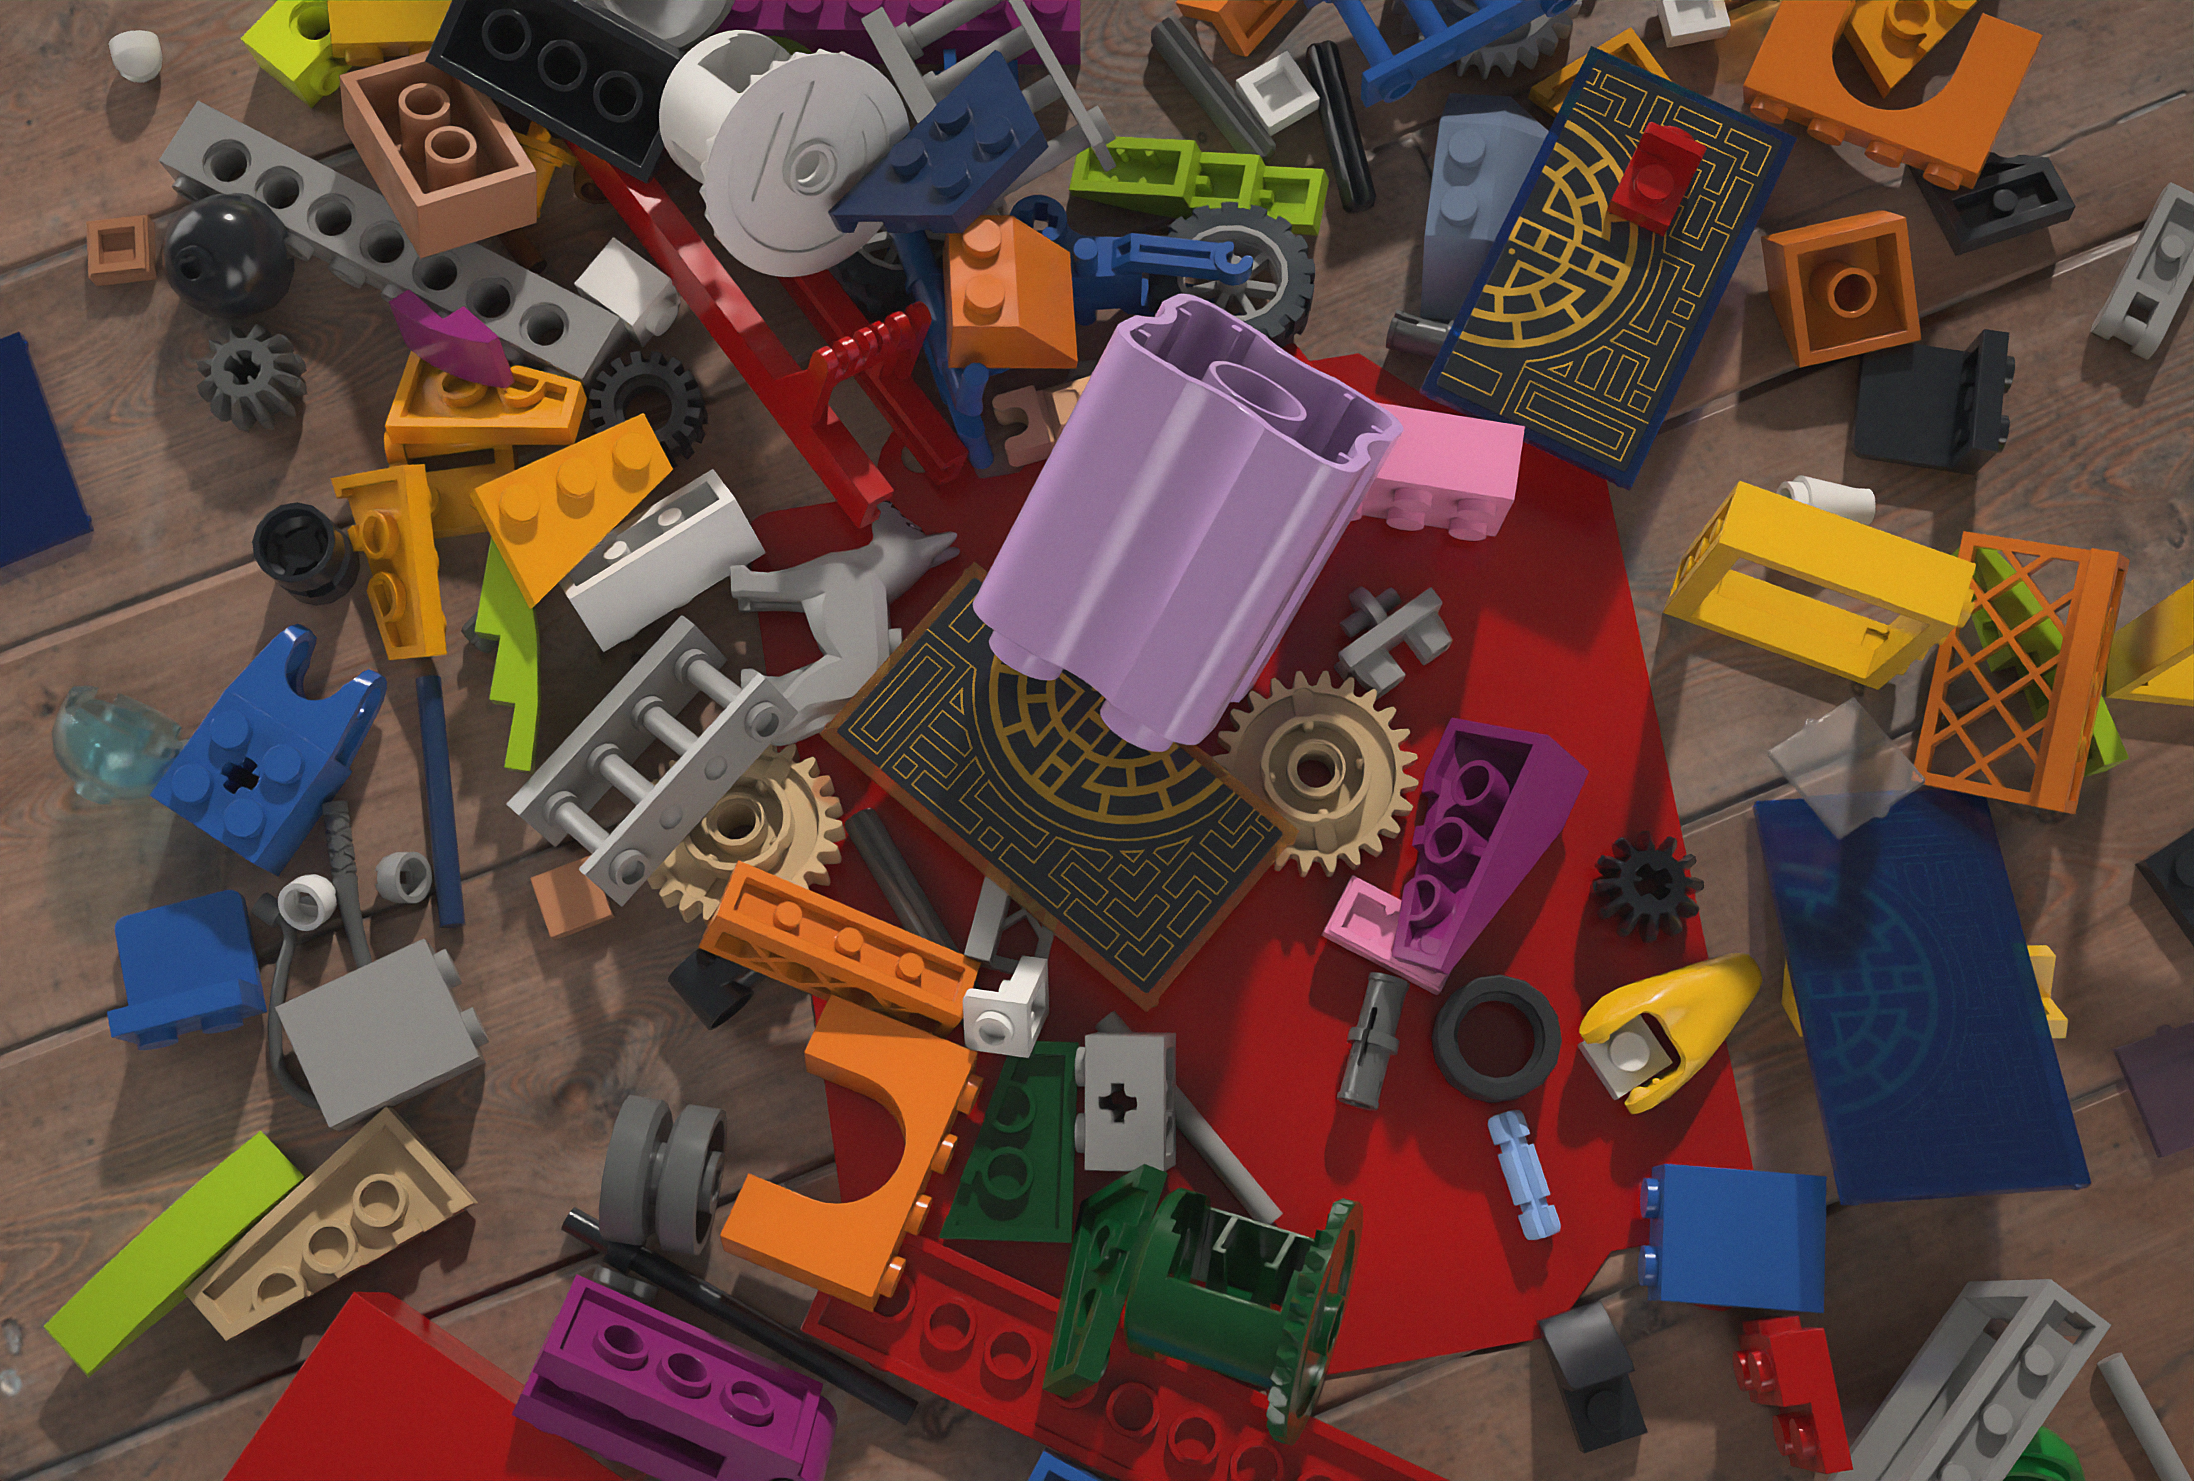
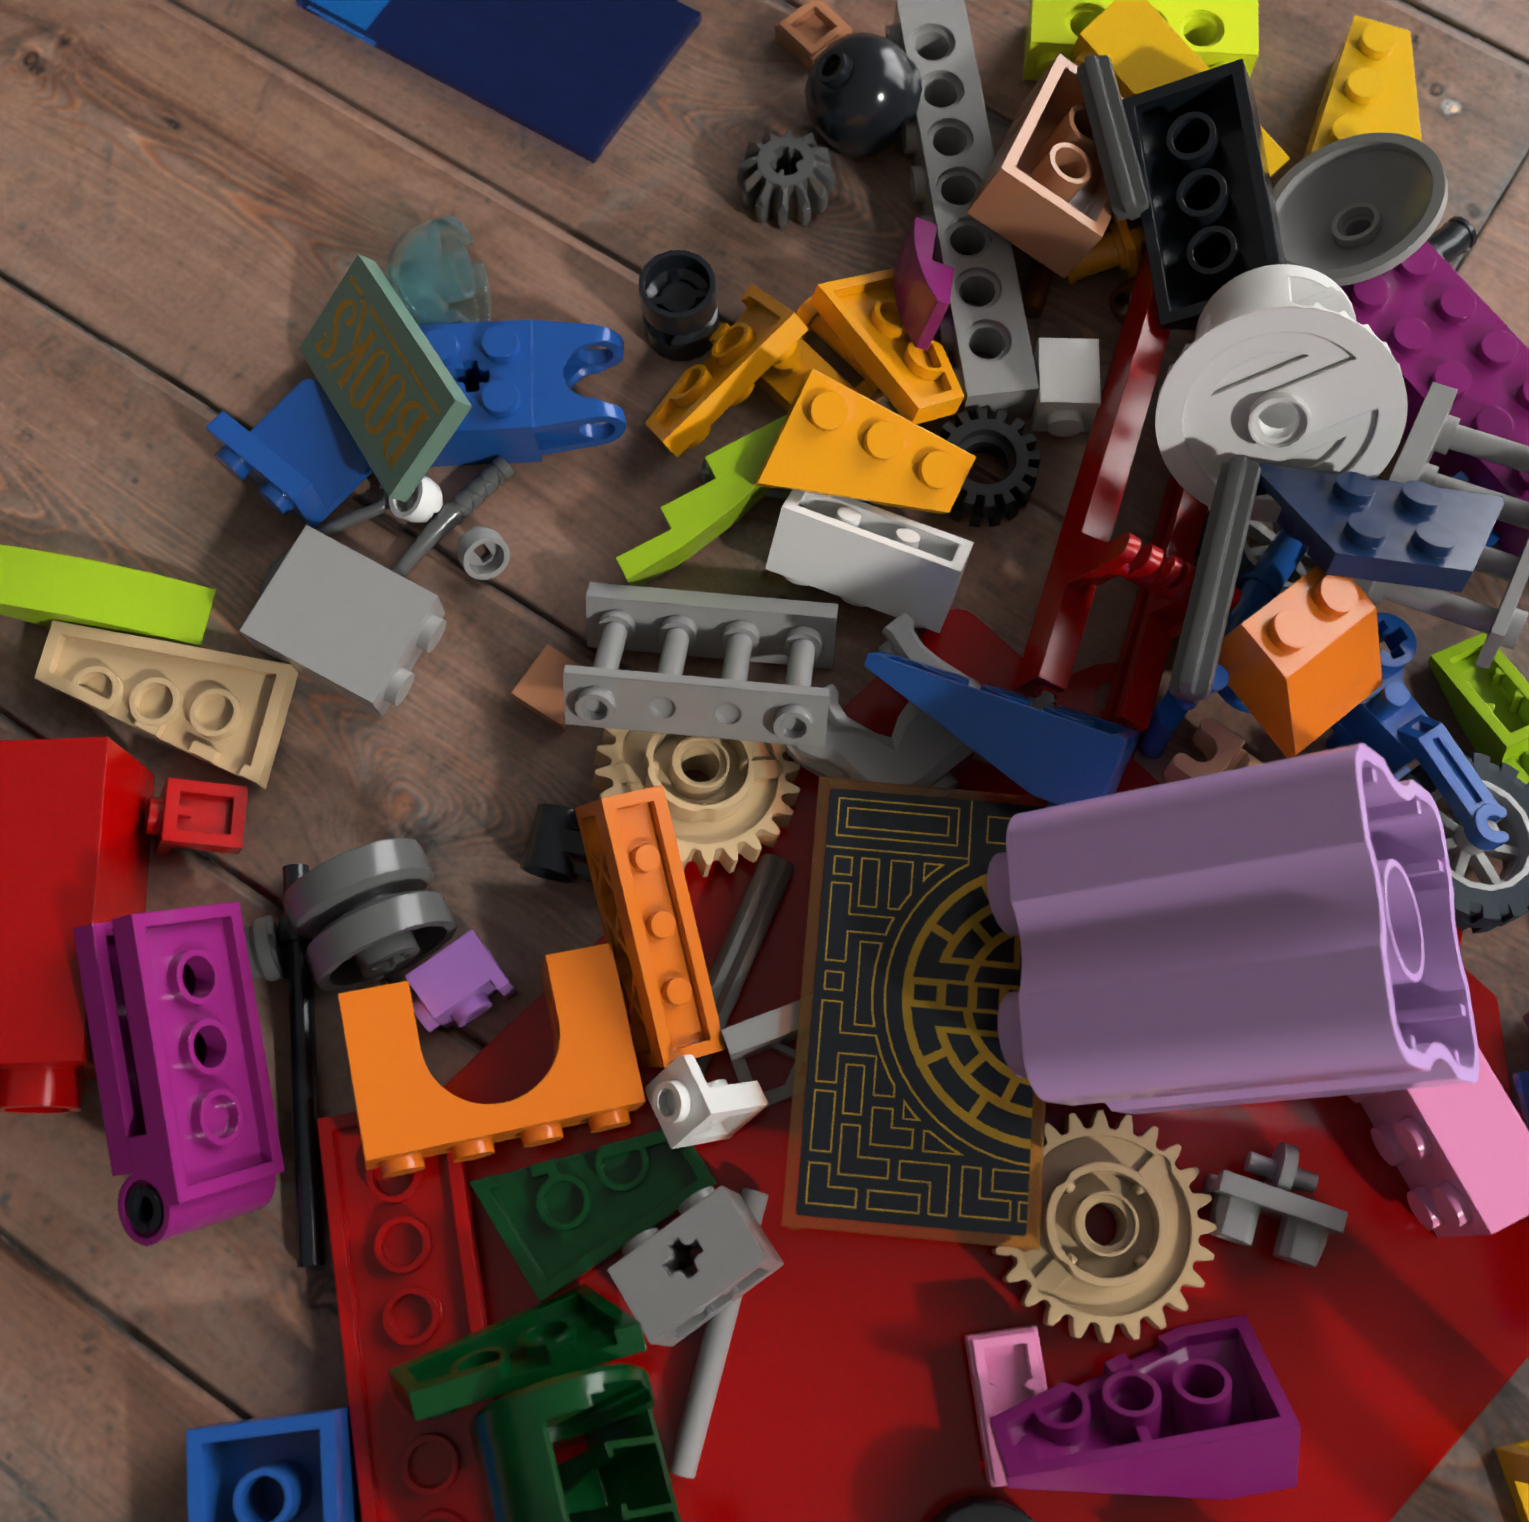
camera: 55 degrees right, 5 degrees down
(181, 852) = (384, 378): none -> sand green tile
(440, 802) = (561, 538): dark blue bar -> none
(453, 94) = (1112, 137): none -> dark grey axle
(462, 1275) = (197, 816): none -> red bracket
(770, 1140) = (458, 984): none -> medium lavender brick
(900, 314) = (1215, 580): none -> dark grey axle
(937, 540) = (1045, 751): none -> blue wedge
(1373, 1041) = (904, 1453): dark grey pin -> none

